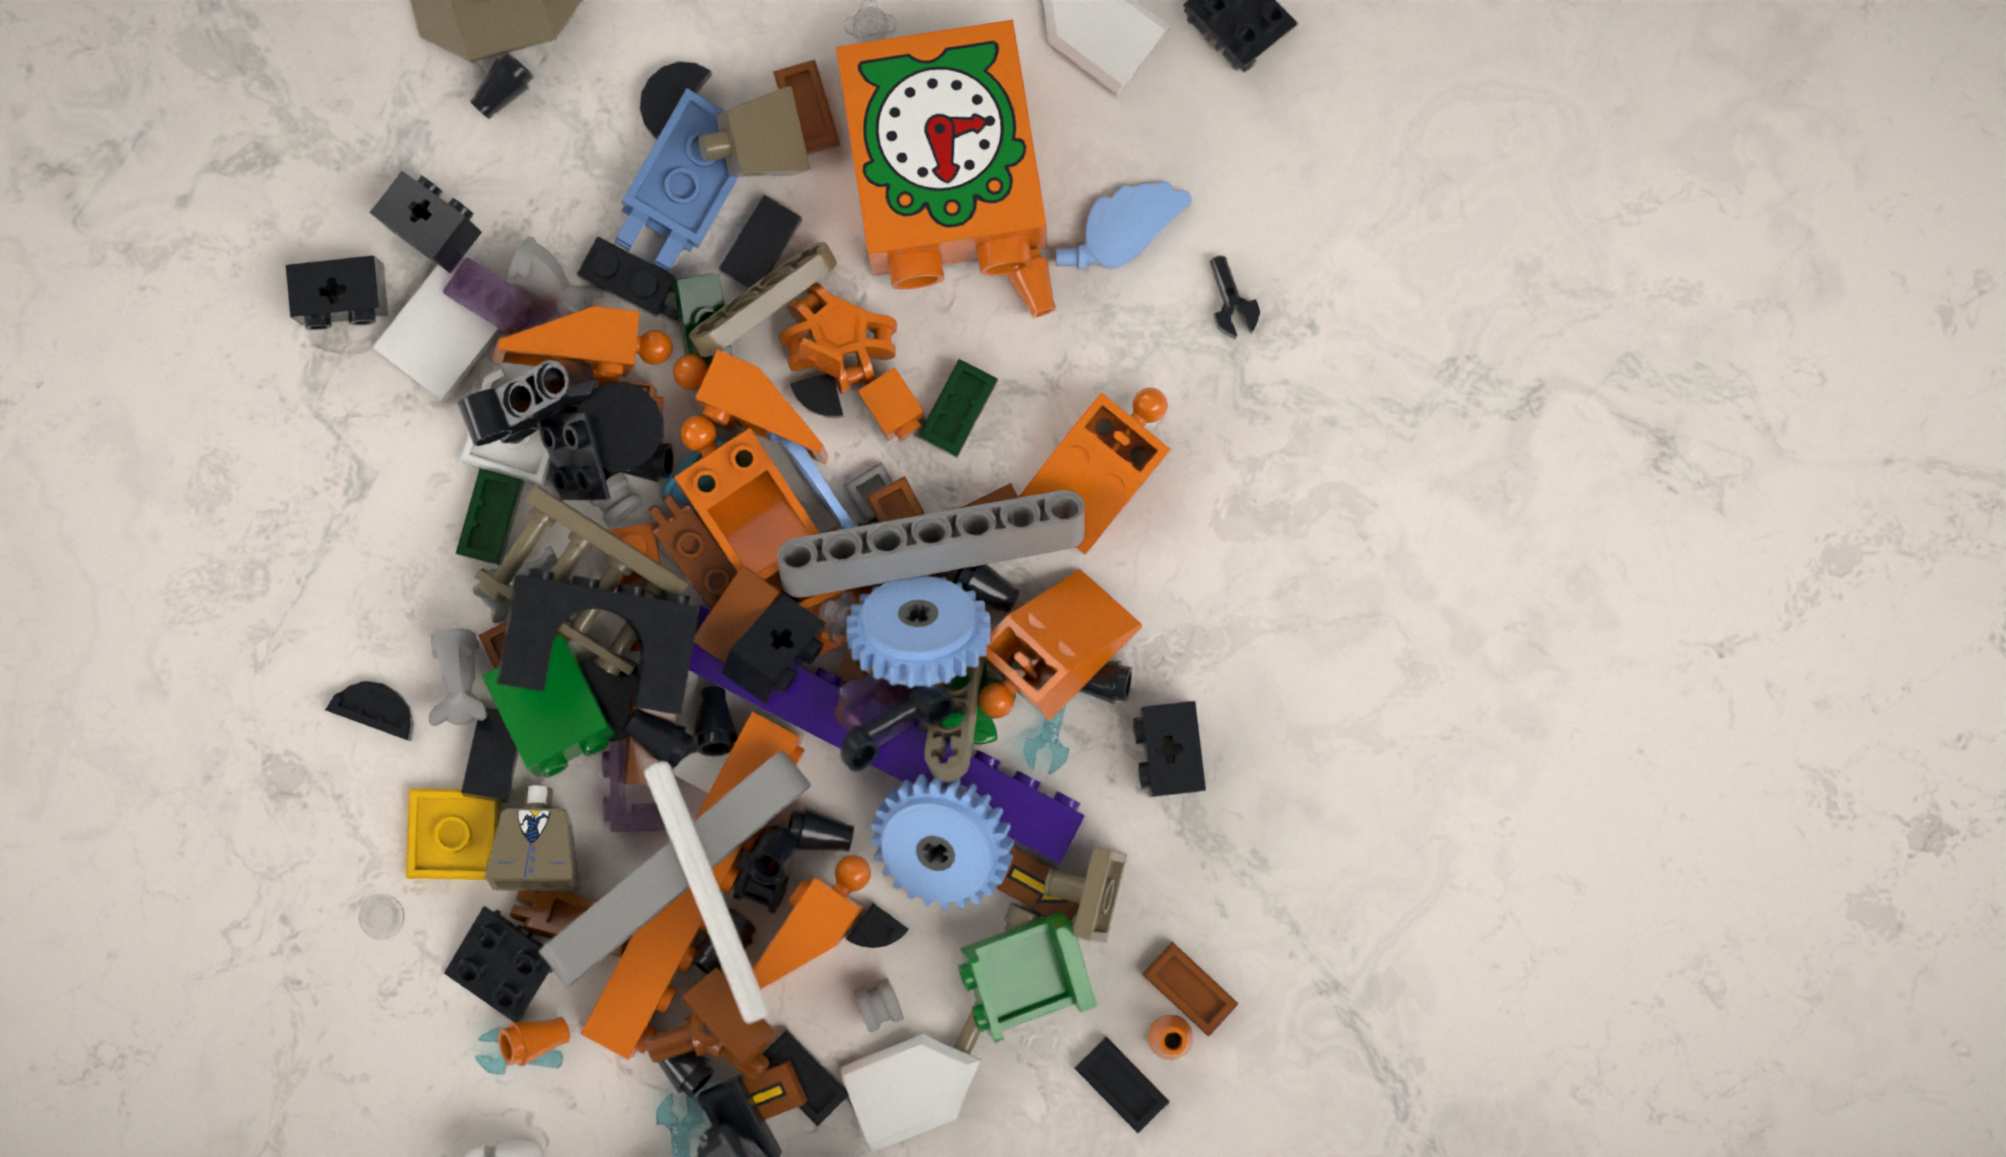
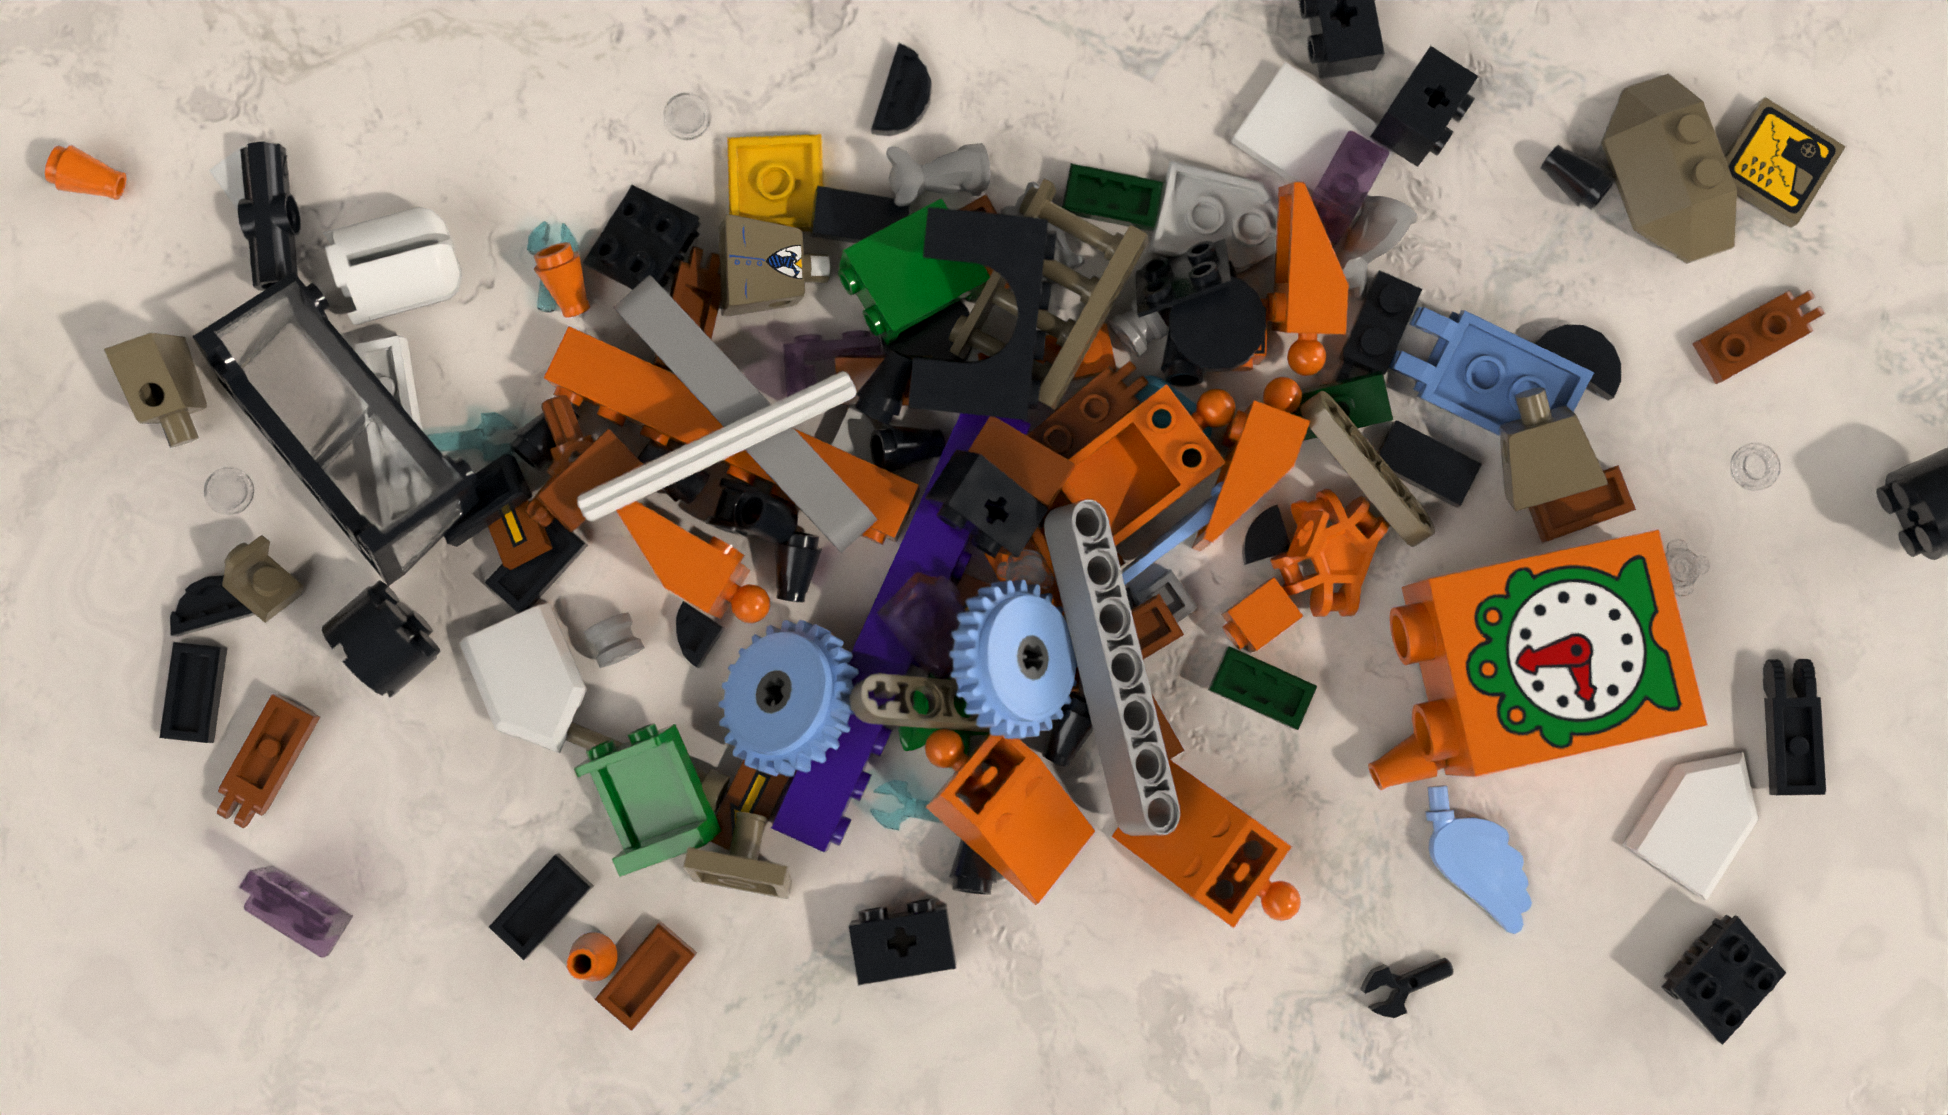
camera: 85 degrees right, 0 degrees up
(511, 414) = (1238, 219): black piece -> none
(930, 703) = (878, 602): black bar -> none

